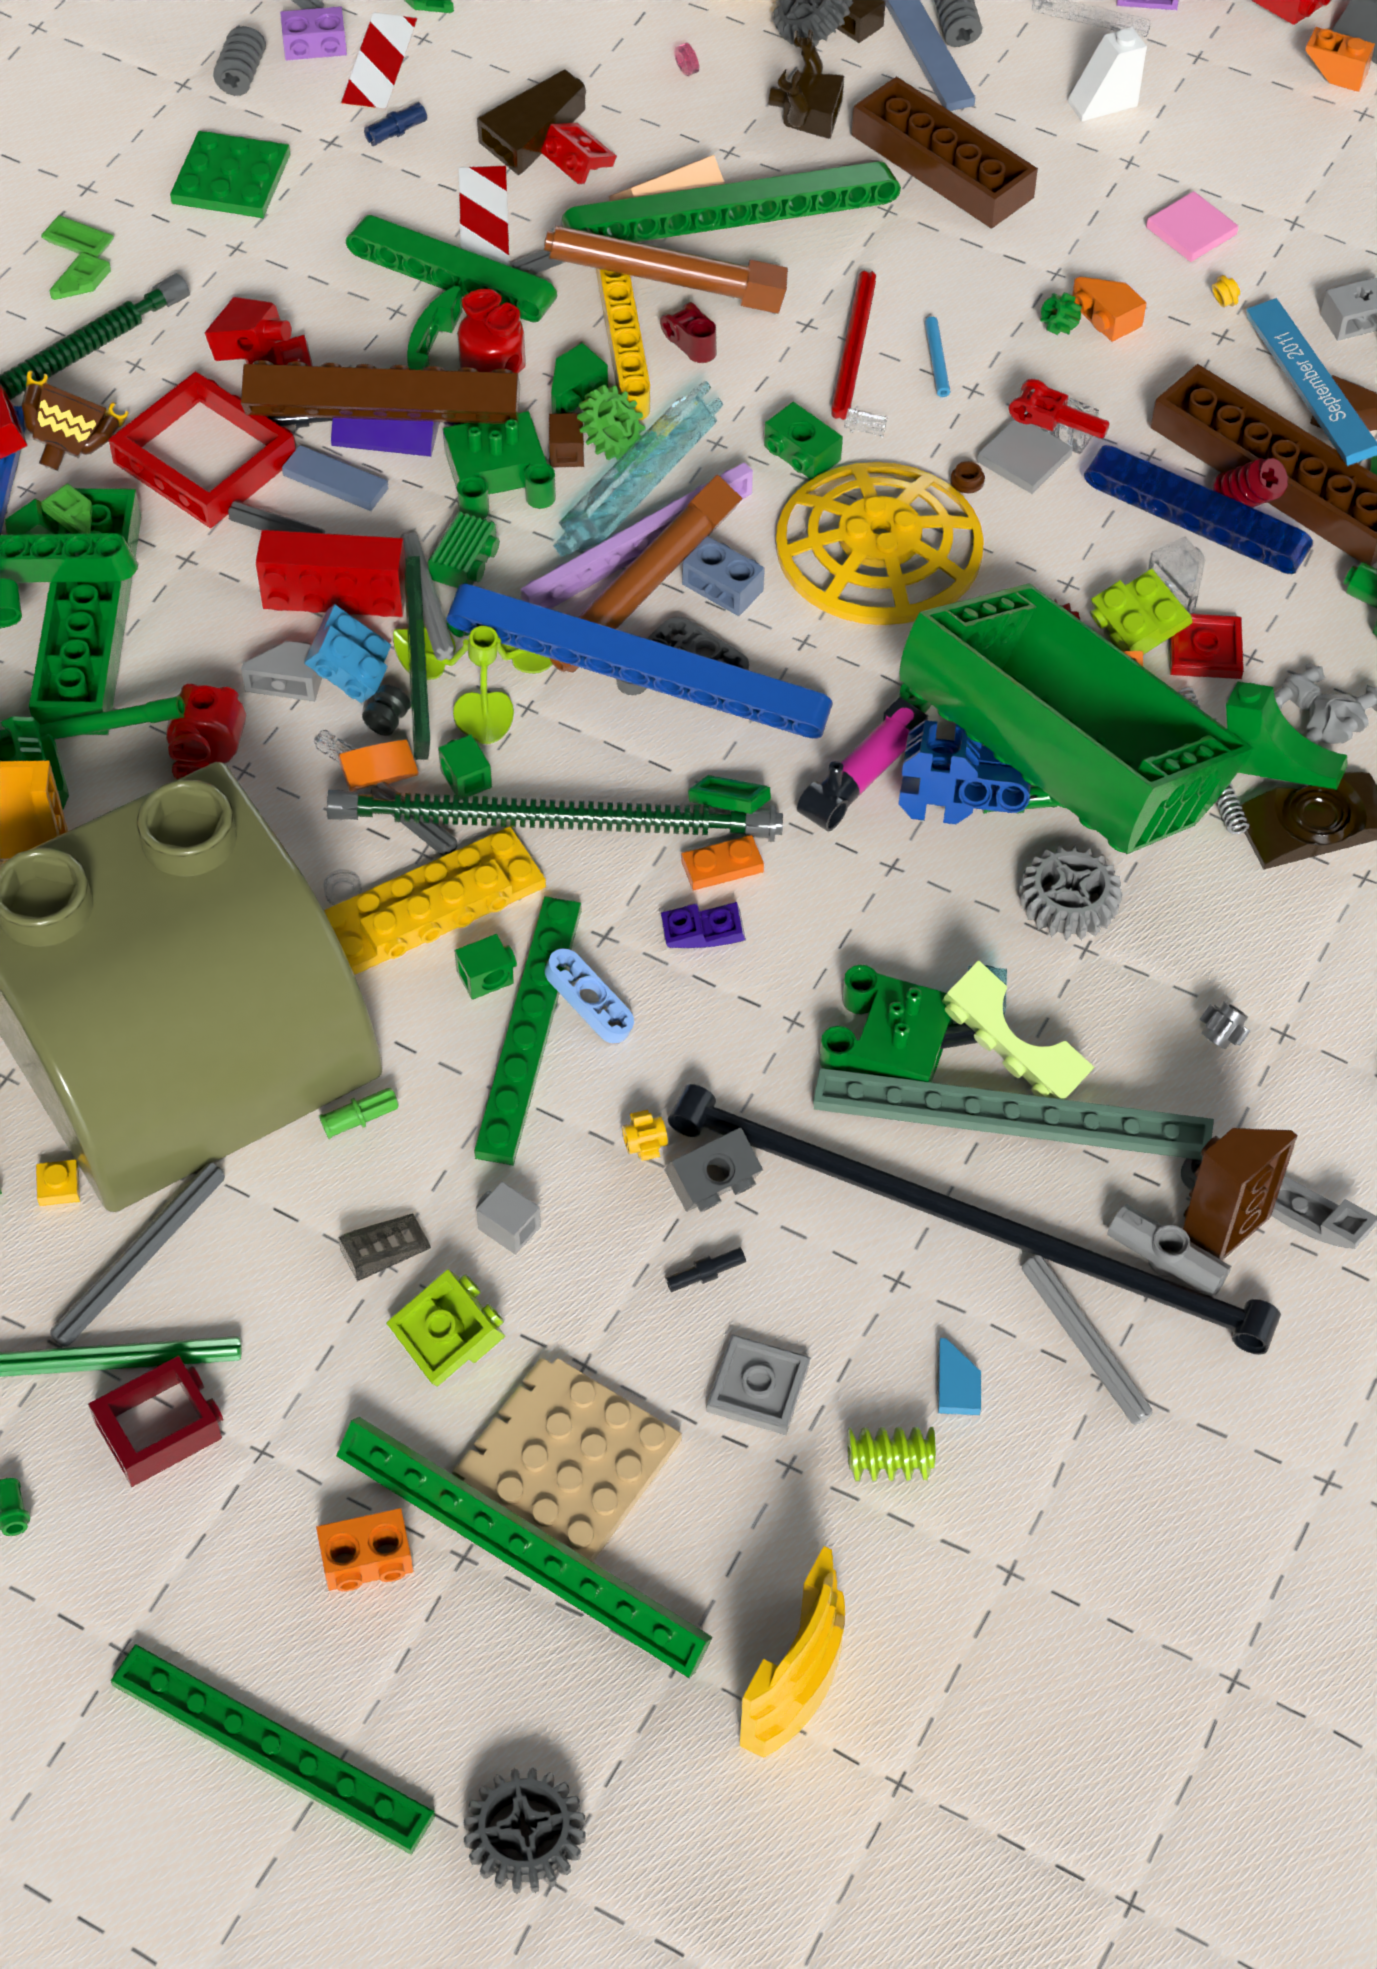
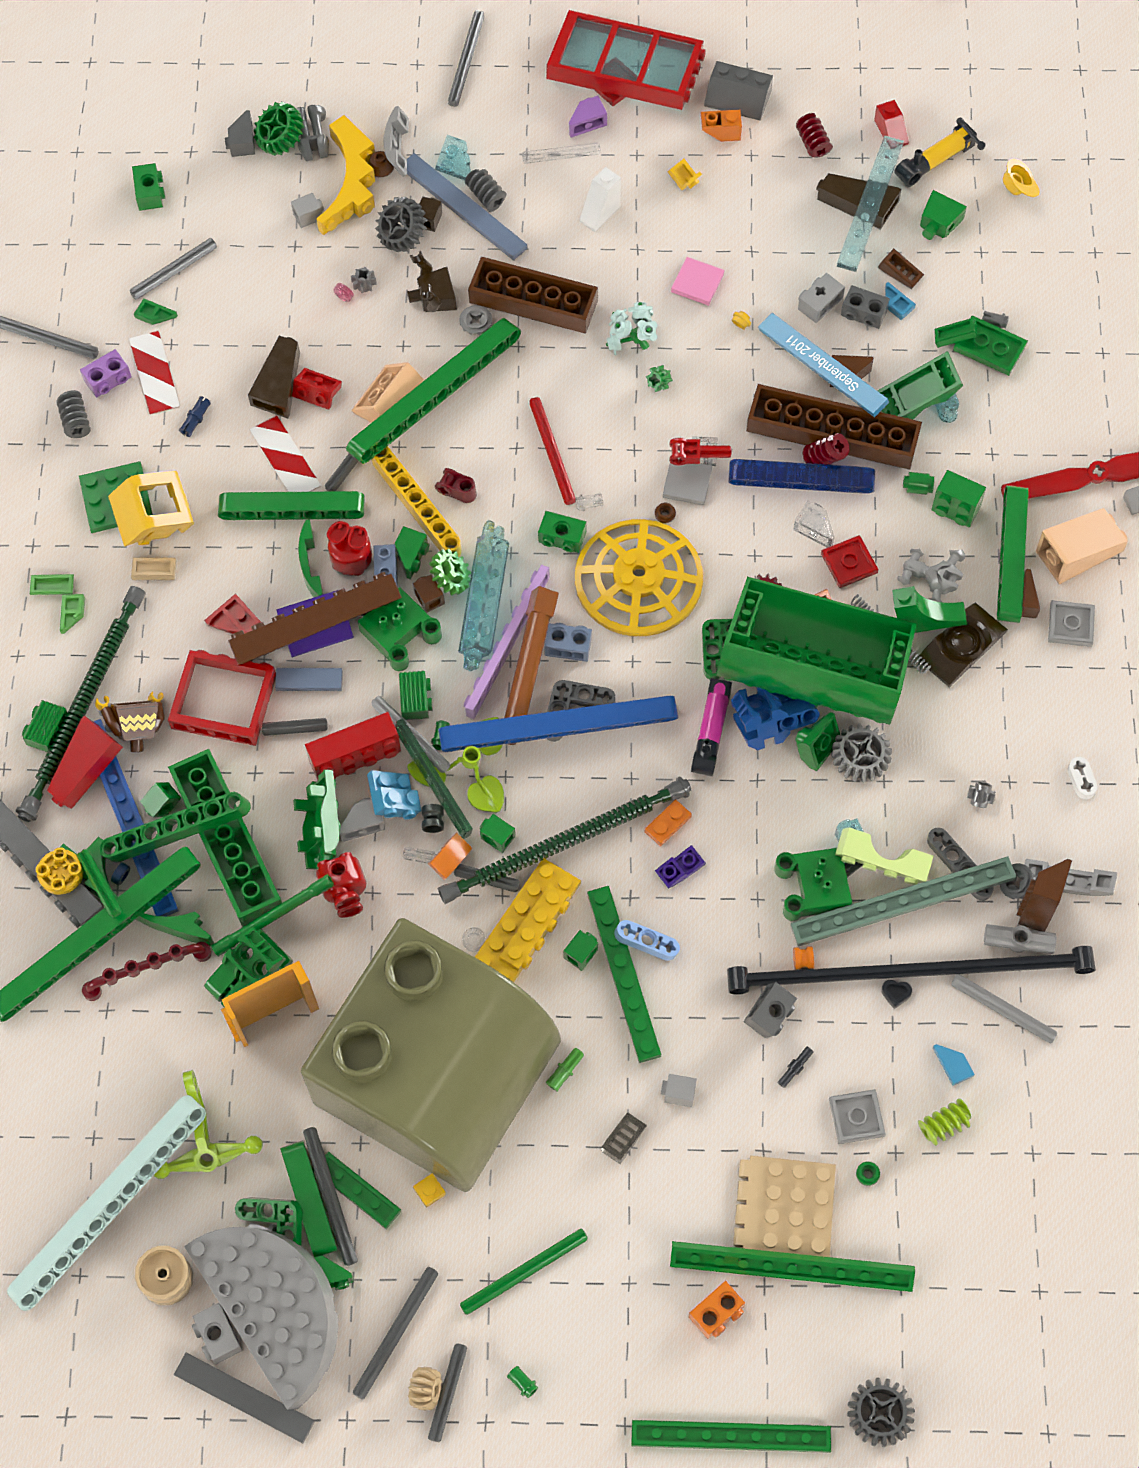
camera: 25 degrees left, 10 degrees up
(70, 509) = (182, 781): bright green tile -> none
(137, 1255) = (498, 1209): dark grey axle -> none
(171, 1449) = (556, 1318): dark red window -> none
(221, 271) = (153, 569): none -> tan tile
(228, 647) = (321, 821): none -> green piece
(246, 330) = (201, 606): red torso -> none
(259, 214) = (130, 511): none -> yellow piece
(447, 1326) = (685, 1168): lime plate -> none
(535, 379) = (385, 560): none -> sand blue brick
(644, 1135) = (723, 1007): yellow gear -> none
(723, 55) = (363, 280): none -> flat silver gear
(729, 794) = (651, 781): green tile -> none
(729, 1461) = (868, 1166): none -> green plate
(757, 285) = (477, 437): dark orange brick -> none
(788, 1695) = (965, 1227): yellow slope -> none
(810, 1124) = (803, 958): none -> orange wheel
(853, 148) = (475, 312): none -> light grey gear
(927, 1240) = (896, 992): none -> black tile
(937, 357) = (603, 437): dark azure piece -> none
(1009, 843) = (816, 742): none -> green slope
(1077, 235) = (621, 328): none -> light aqua plant
(1109, 306) = (682, 360): orange slope -> none
(1136, 1076) = (957, 865): none -> dark grey beam
(1139, 613) = (806, 560): lime plate -> none
(1249, 97) = (684, 175): none -> yellow bracket

